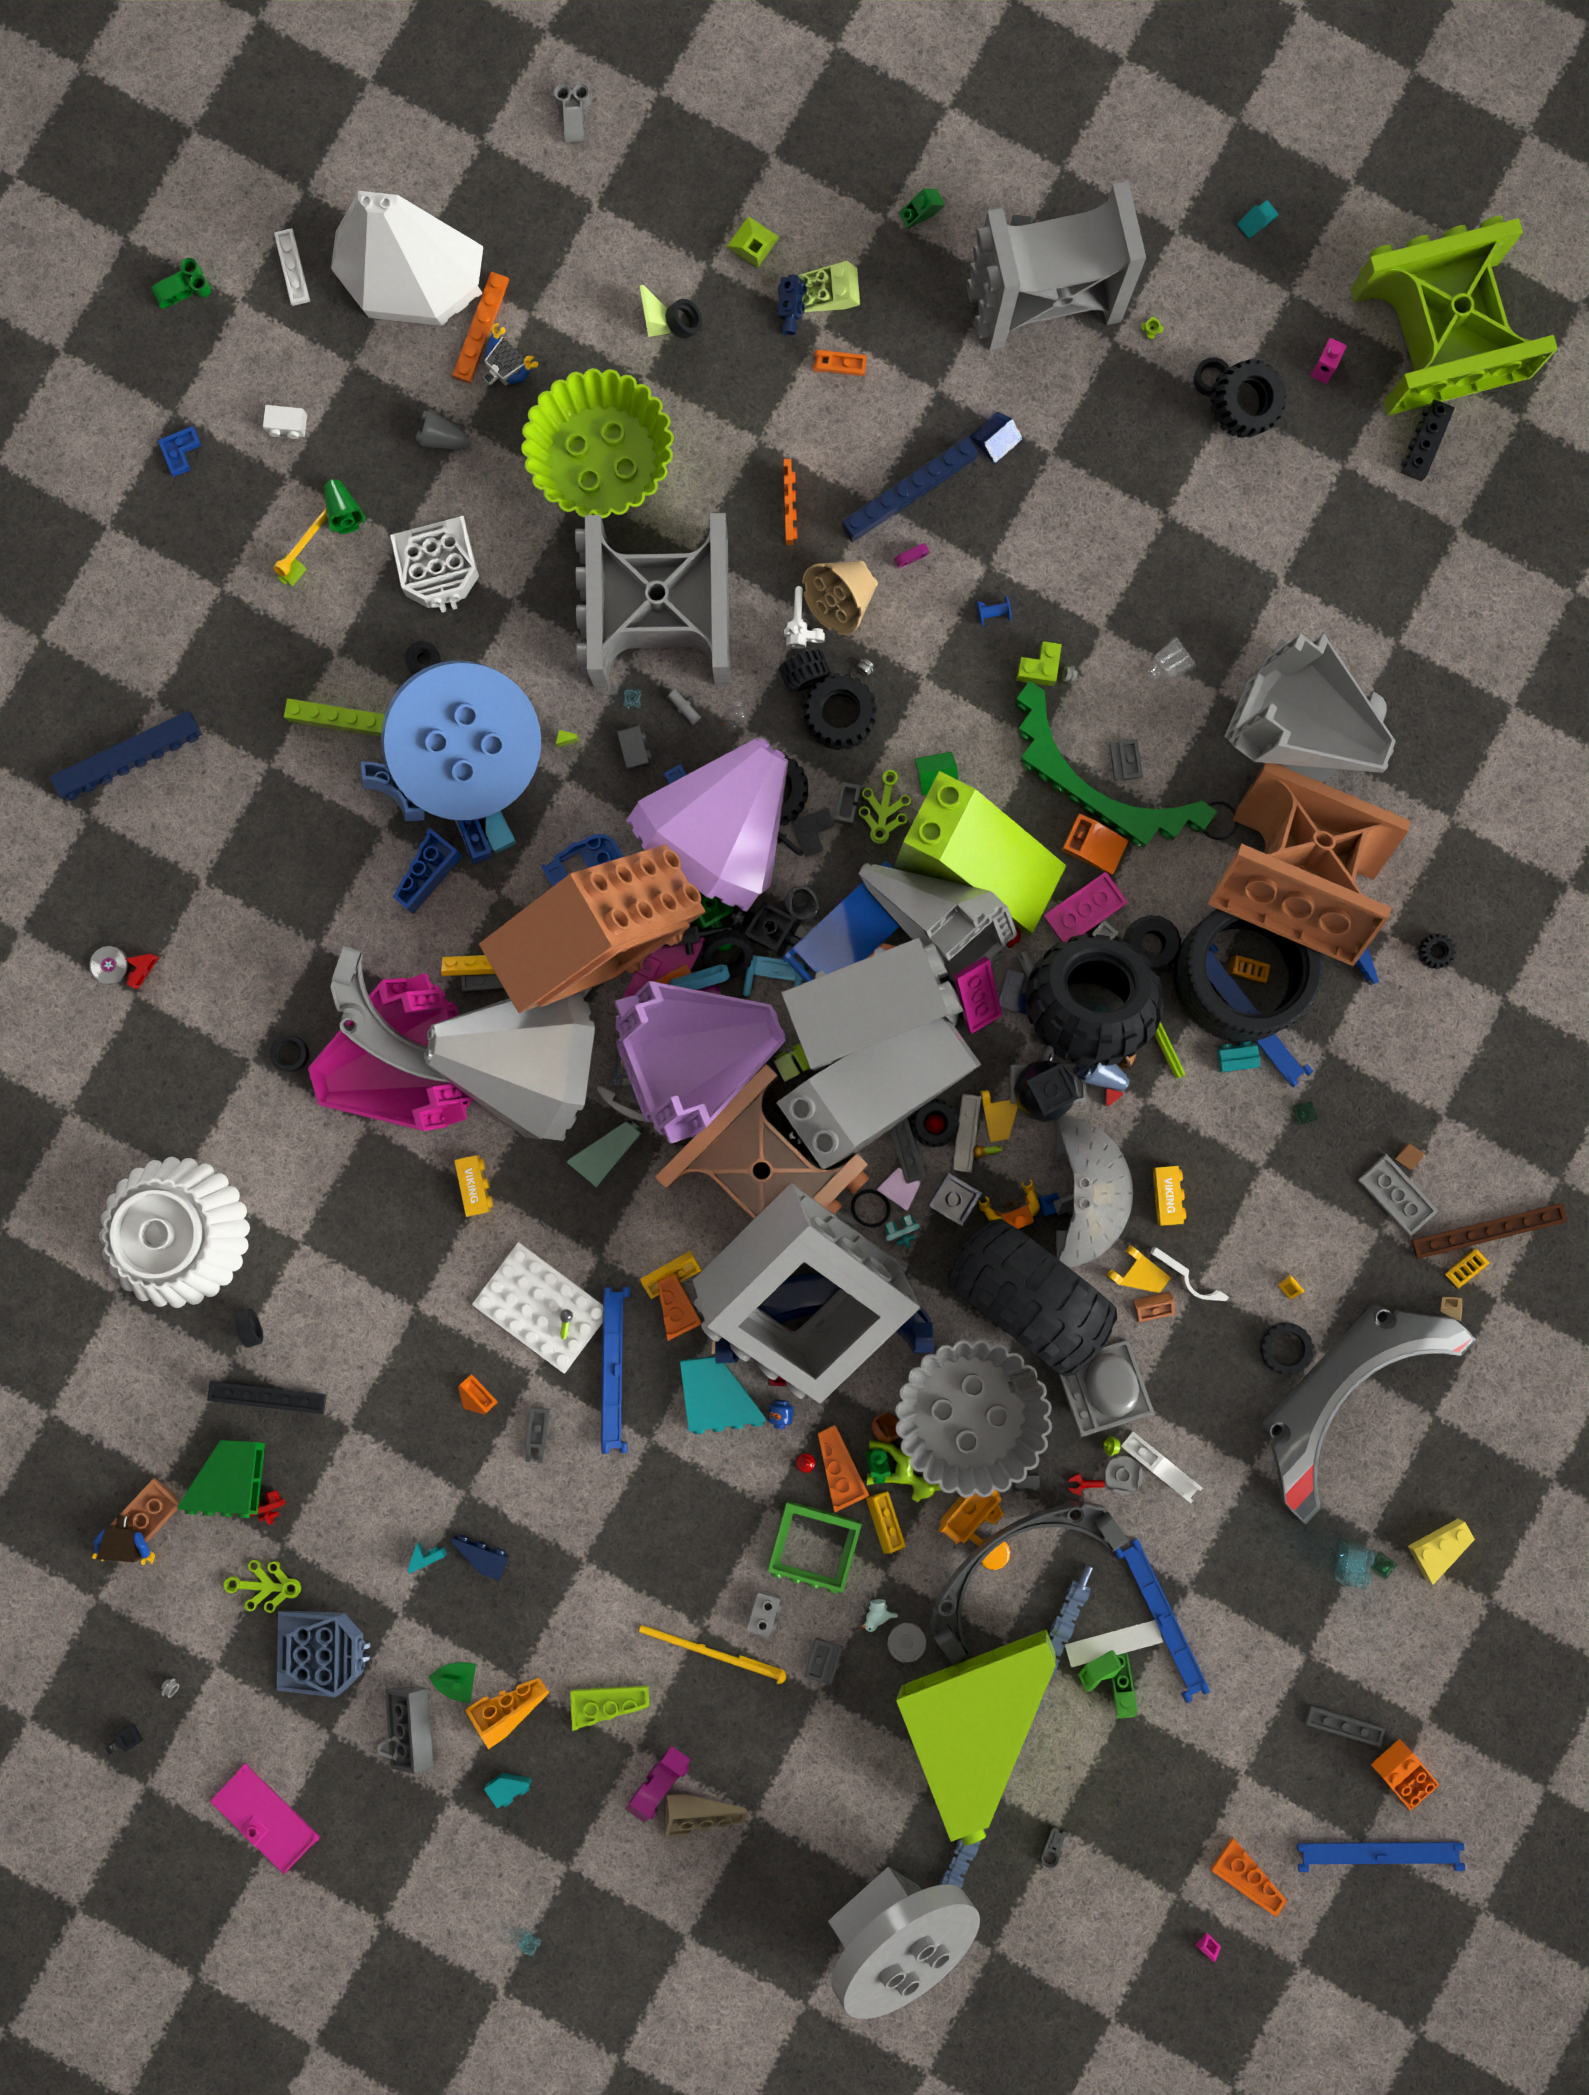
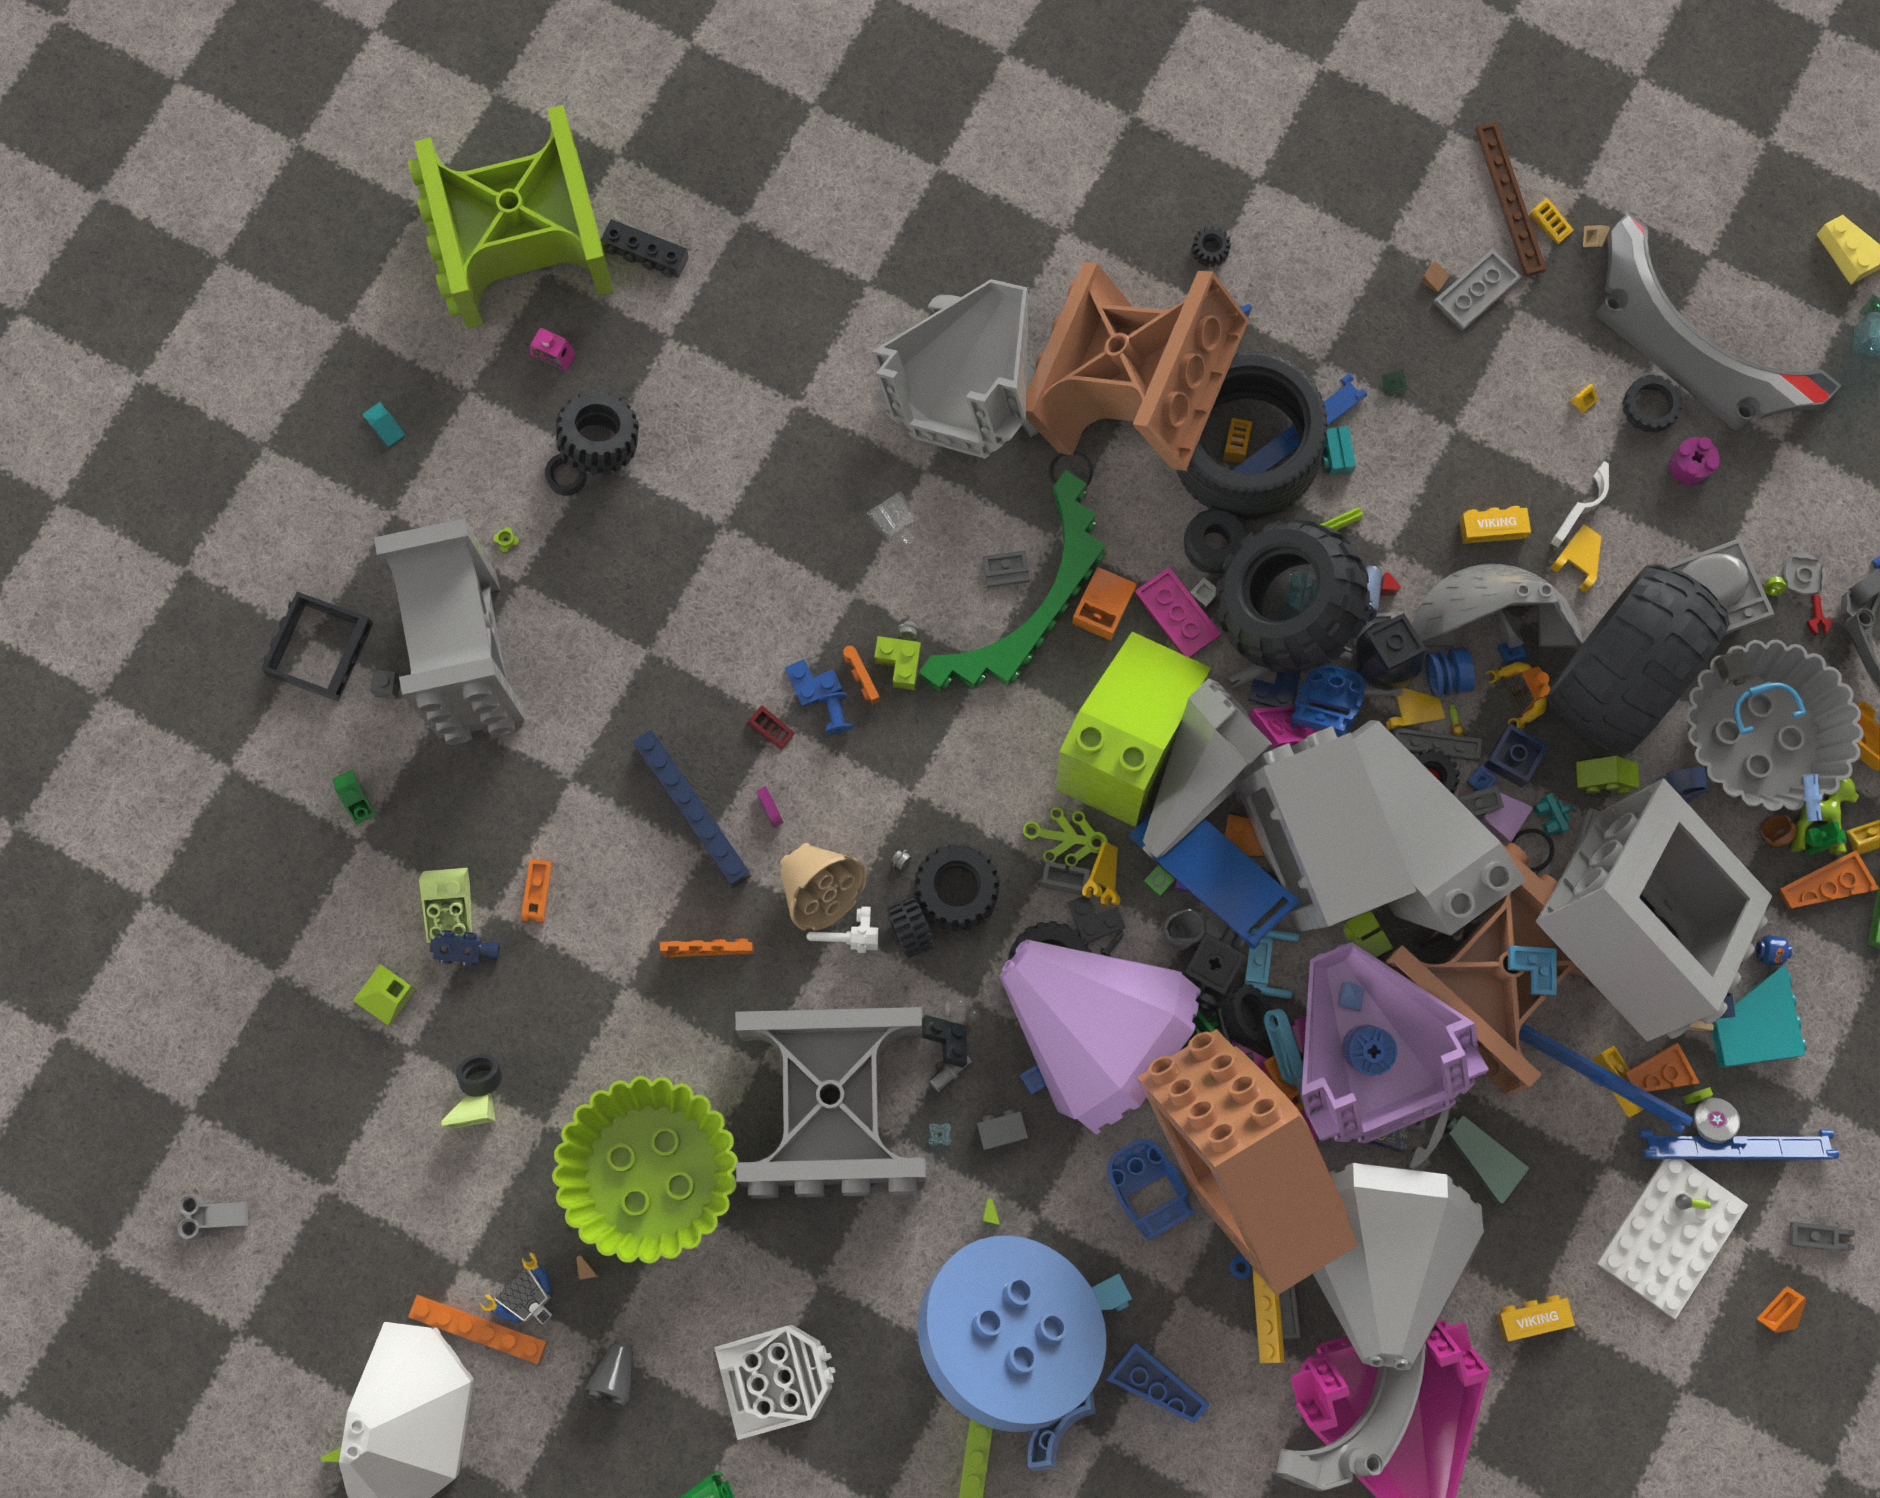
camera: 90 degrees left, 10 degrees down
(417, 649) = (880, 1398): black tyre -> none
(474, 840) = (1123, 1322): blue brick -> none
(523, 409) = (585, 1270): none -> medium nougat slope
(635, 1352) = (1716, 1120): none -> light grey tile
(656, 1338) = (1698, 1096): none -> lime tile
(672, 1252) = (1605, 1078): none -> blue piece
(700, 1057) = (1365, 1037): none -> blue wheel
(712, 706) = (950, 1035): none -> black plate
(739, 1040) = (1351, 995): none -> medium blue slope
(761, 1192) = (1541, 963): none -> dark azure plate
(805, 1462) = (1824, 922): red plate -> none
(845, 885) = (1158, 880): none -> bright green tile
(850, 837) = (1104, 875): none -> yellow flag
(906, 1444) = (1812, 797): none -> light blue pin
(929, 766) = (1023, 777): green slope -> none
(934, 1170) = (1481, 778): none -> blue tile
(935, 1280) = (1608, 773): none -> lime brick
(991, 543) = (765, 733): none -> dark red slope
(997, 436) = (628, 711): slope -> none
(1004, 1406) = (1760, 689): none -> dark azure piece
(1016, 1039) = (1333, 688): none -> blue slope
(1017, 591) = (809, 688): none -> blue plate
(1028, 633) = (860, 674): none -> orange plate
(1029, 1144) = (1449, 671): none -> blue wheel
(1044, 198) = (348, 659): none -> black window
(1154, 1307) = (1616, 541): nougat slope -> none
(1161, 1466) = (1792, 534): white piece -> none
(1220, 1376) = (1694, 461): none -> magenta brick

